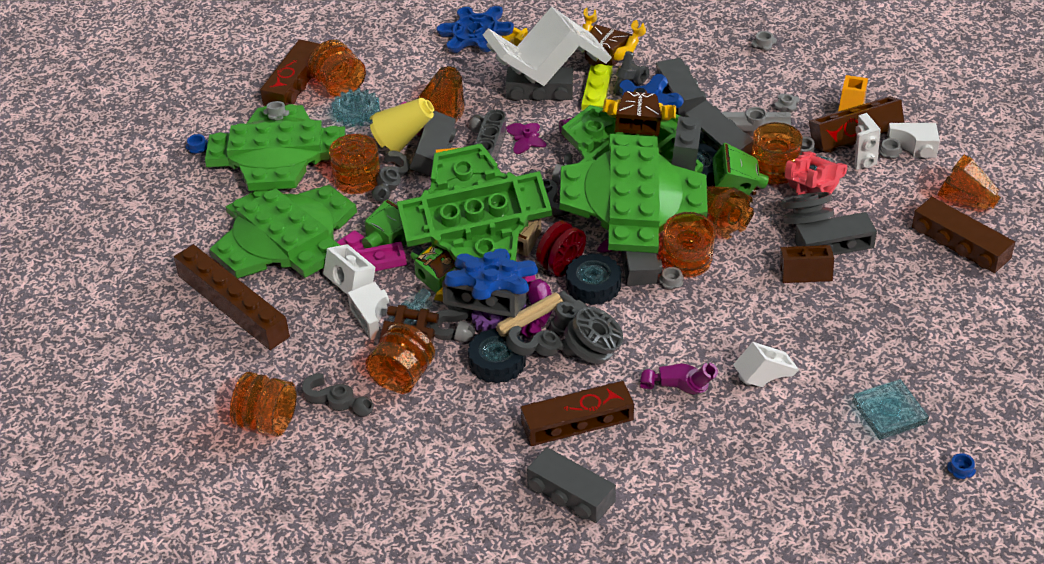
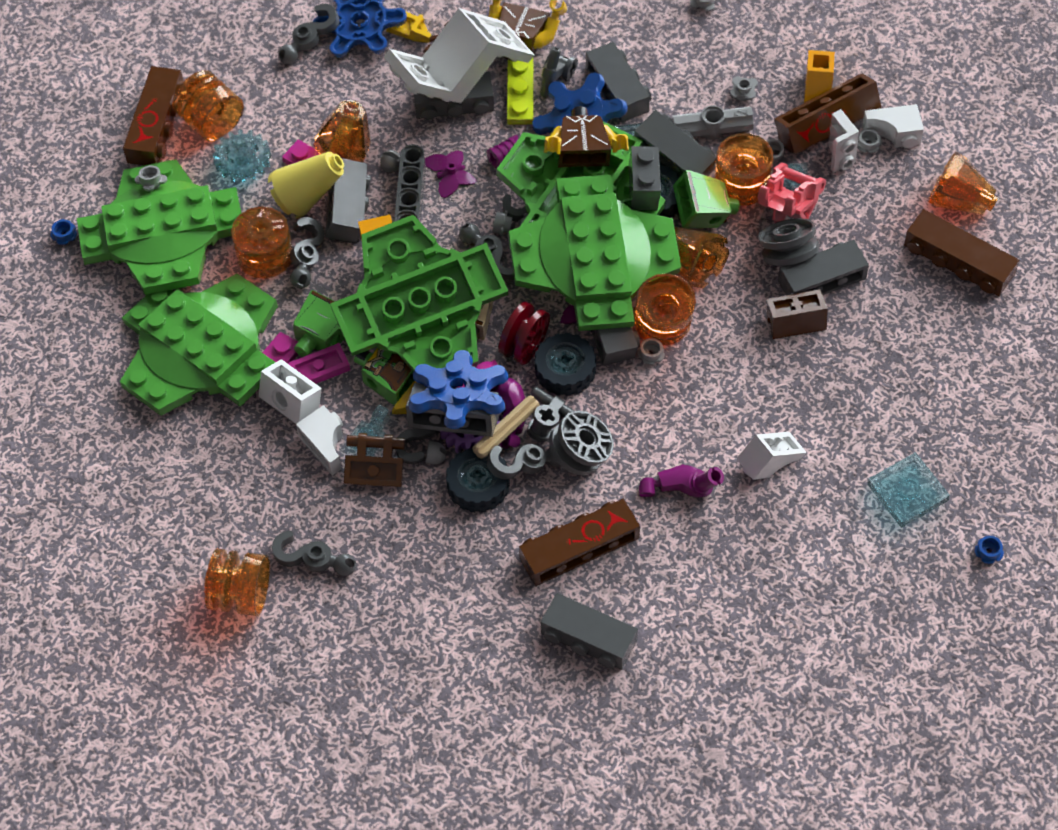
camera: 10 degrees left, 15 degrees up
(232, 297) = (162, 443): reddish brown brick -> none
(400, 358) = (375, 503): clear orange wheel -> none
(430, 34) = (307, 34): none -> dark grey piece

